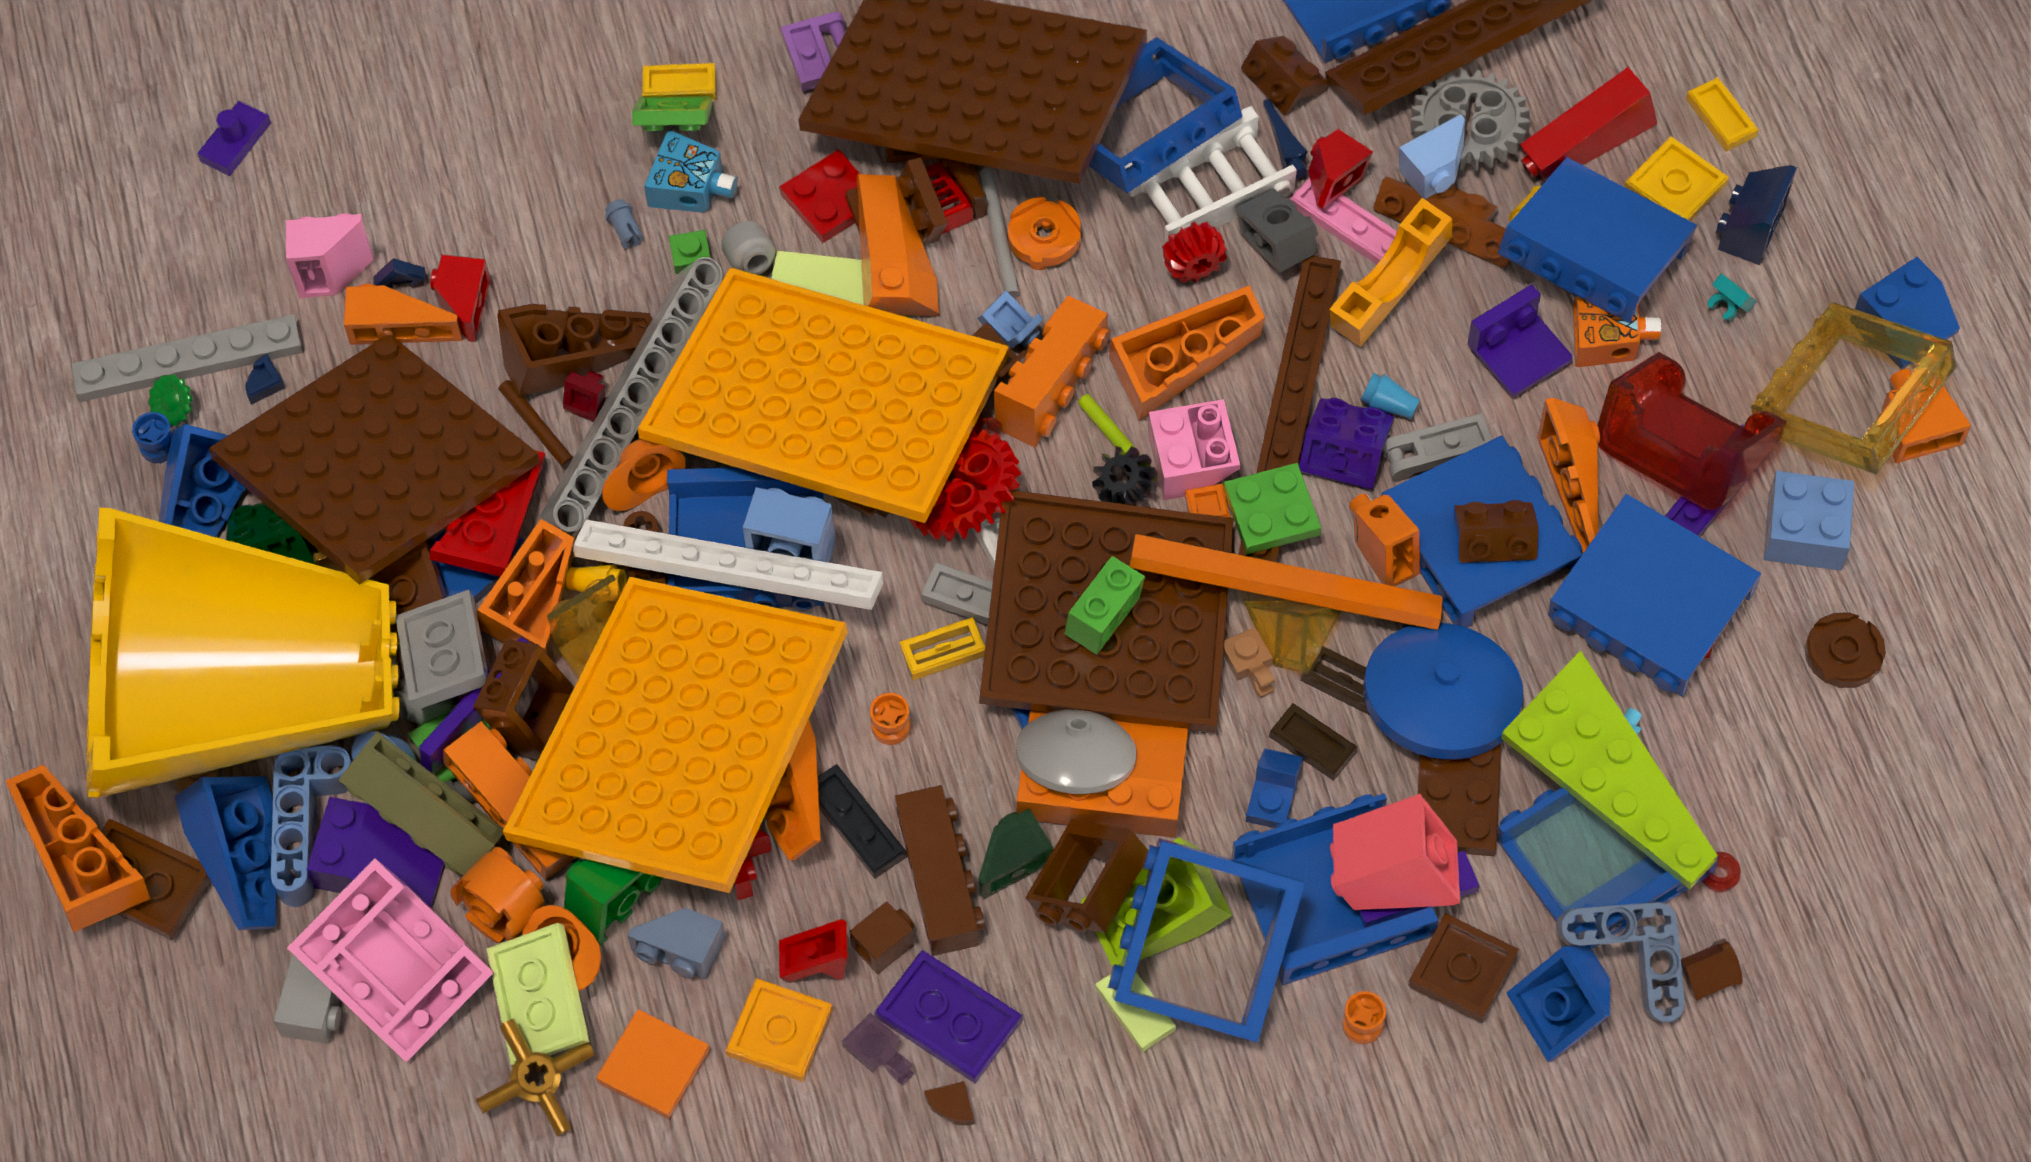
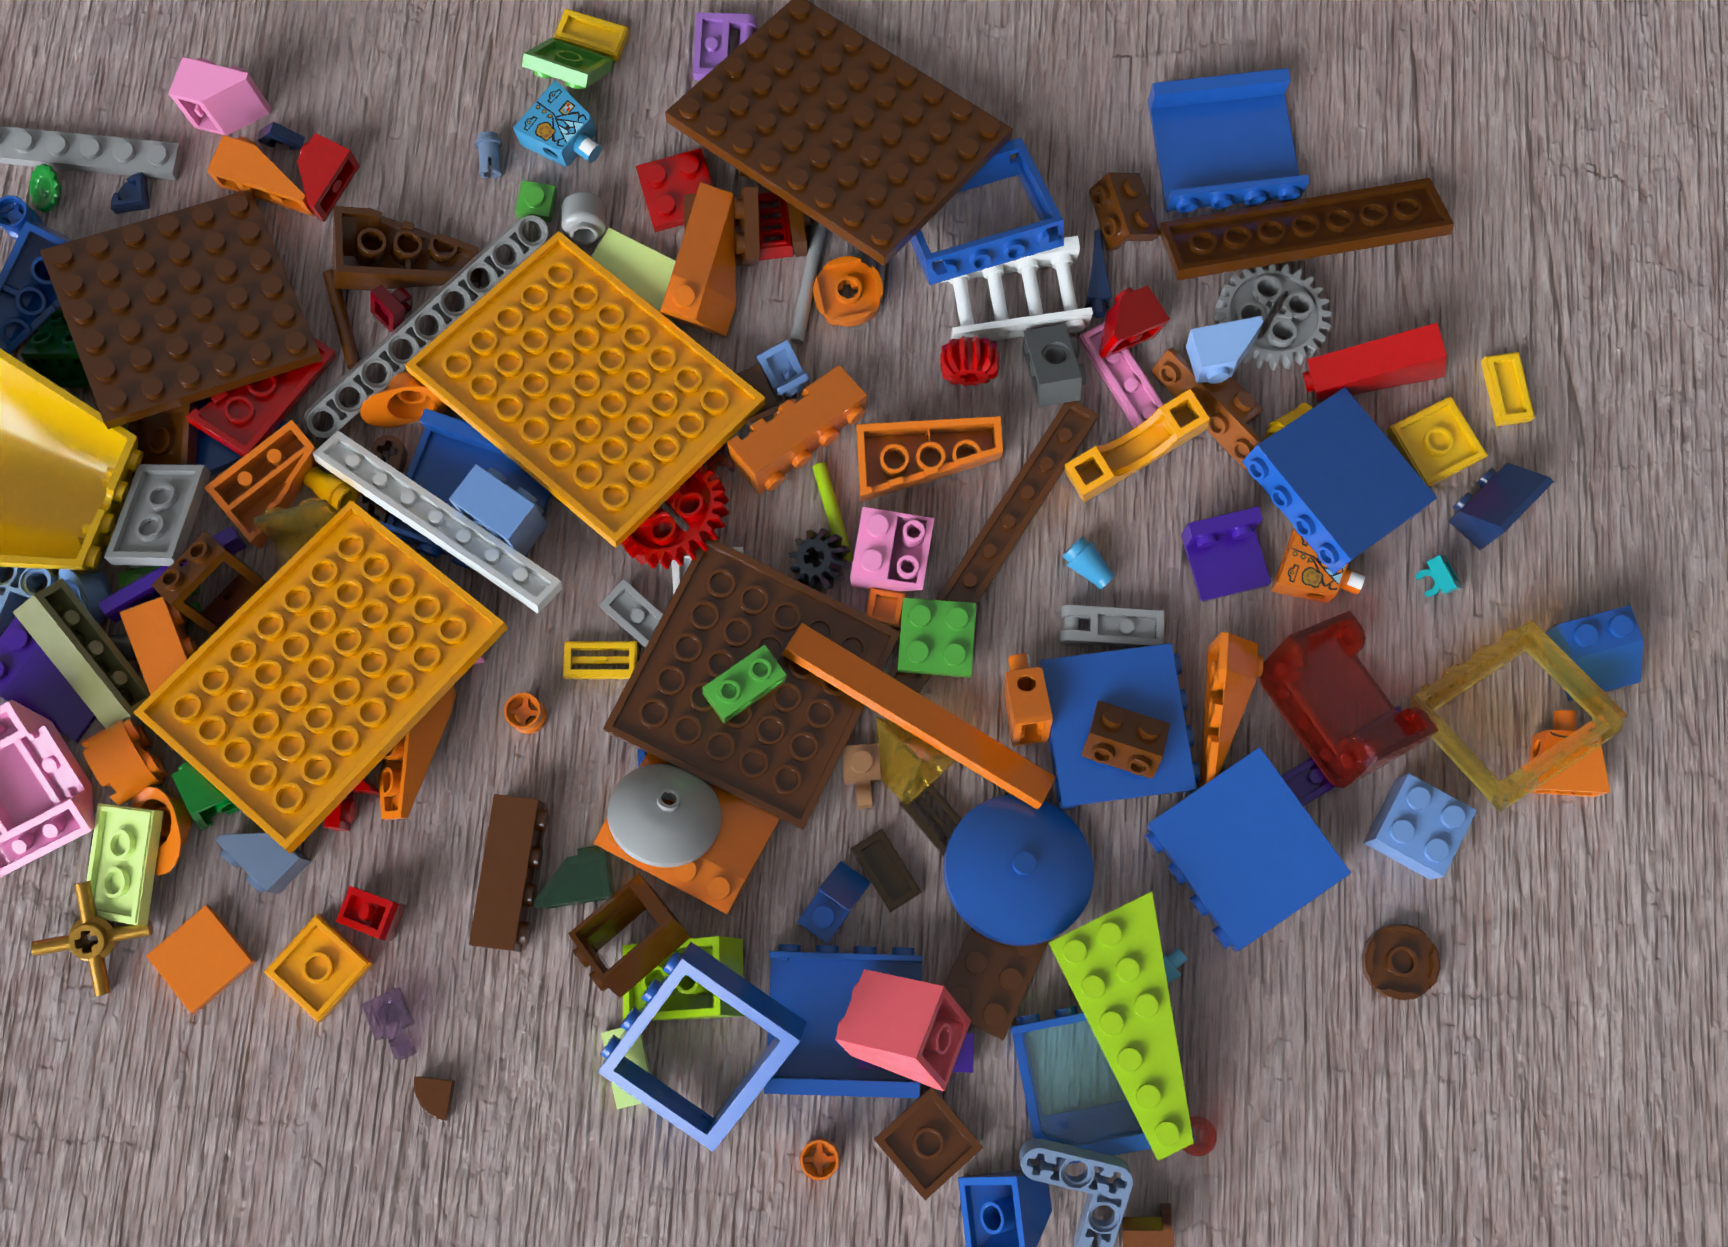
camera: 20 degrees right, 15 degrees up
(858, 823) = (461, 795): black tile -> none
(883, 936) = (436, 918): reddish brown brick -> none
(948, 1016) = (466, 1011): dark purple tile -> none
(1345, 442) = (1032, 591): dark purple bracket -> none

